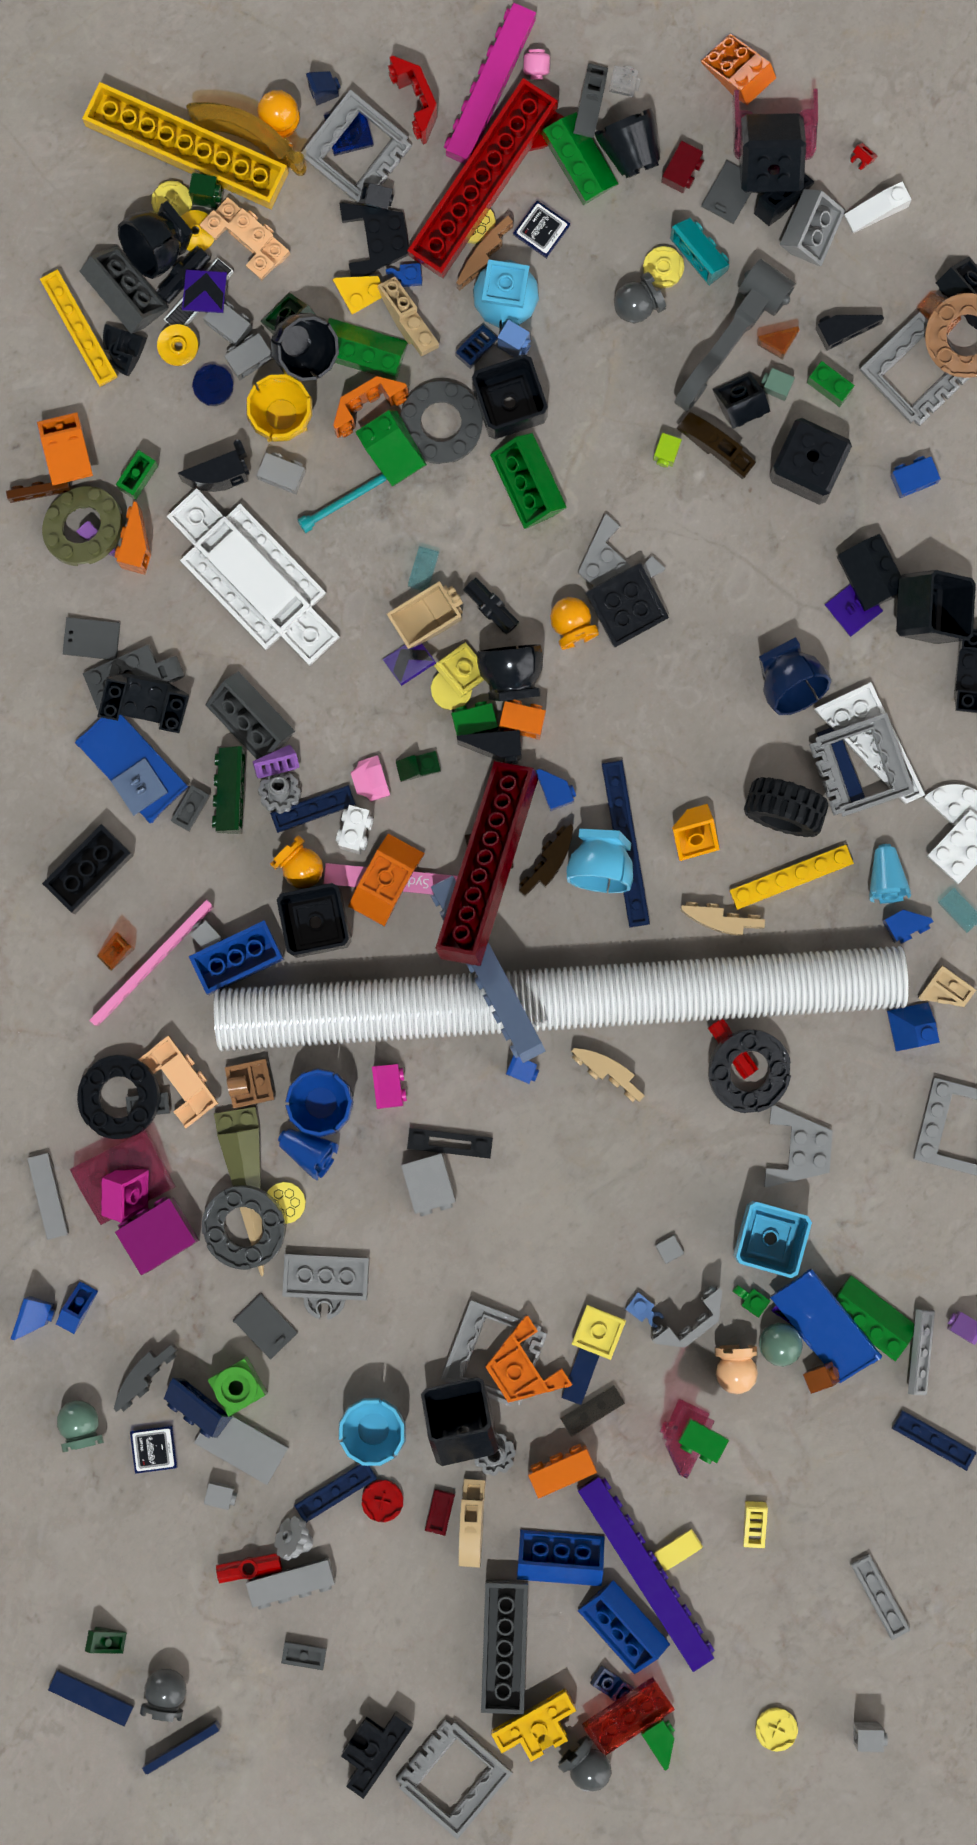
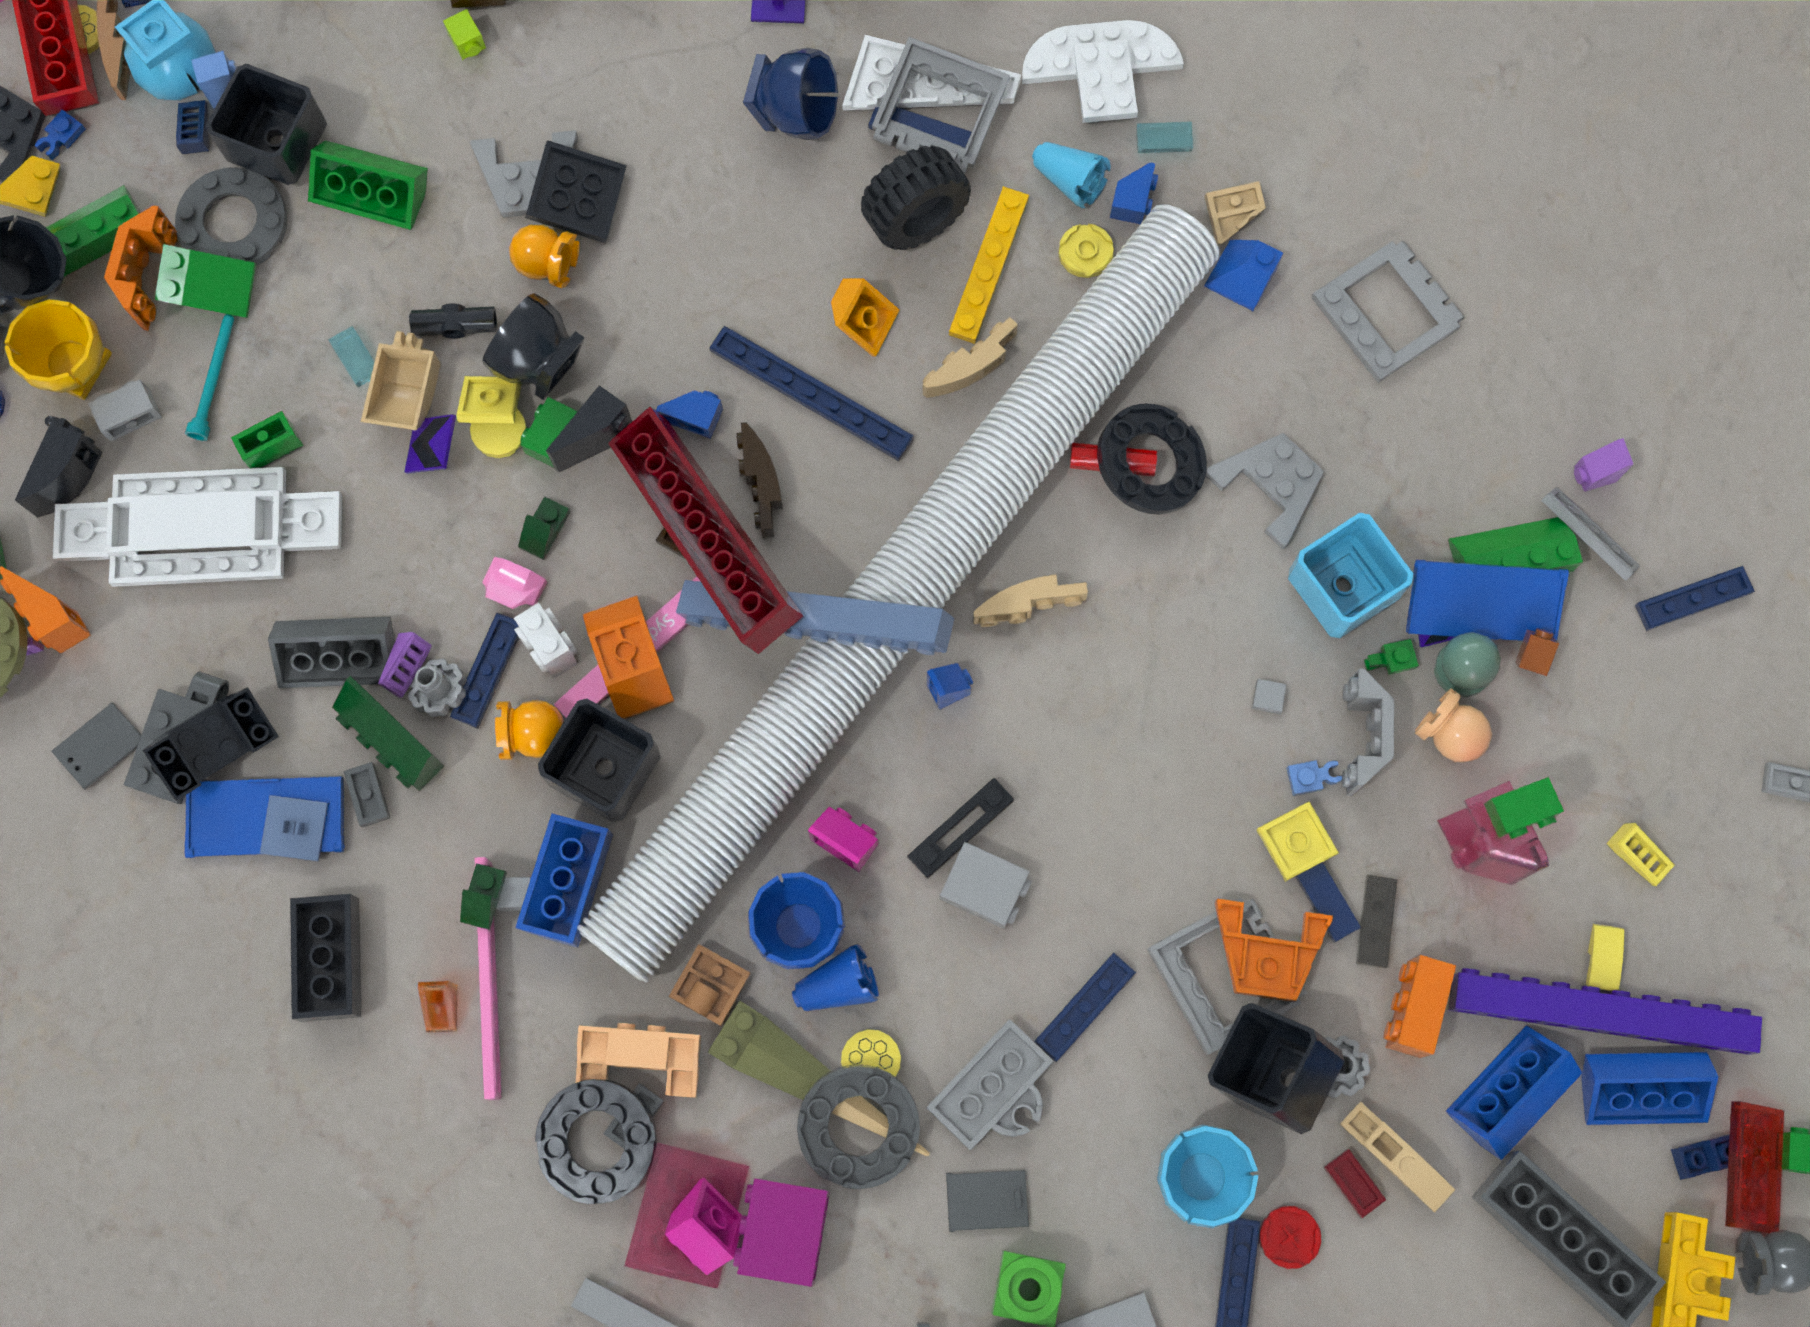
camera: 55 degrees left, 10 degrees down
(189, 923) = (482, 897): none -> dark green slope
(331, 570) = (267, 441): none -> green brick
(406, 317) = (96, 164): tan slope -> none
(410, 1292) = (1084, 1007): none -> dark blue tile
(523, 718) = (589, 372): orange brick -> none
(599, 859) = (798, 414): medium azure plate -> none
(848, 925) = (1086, 250): none -> light yellow tile

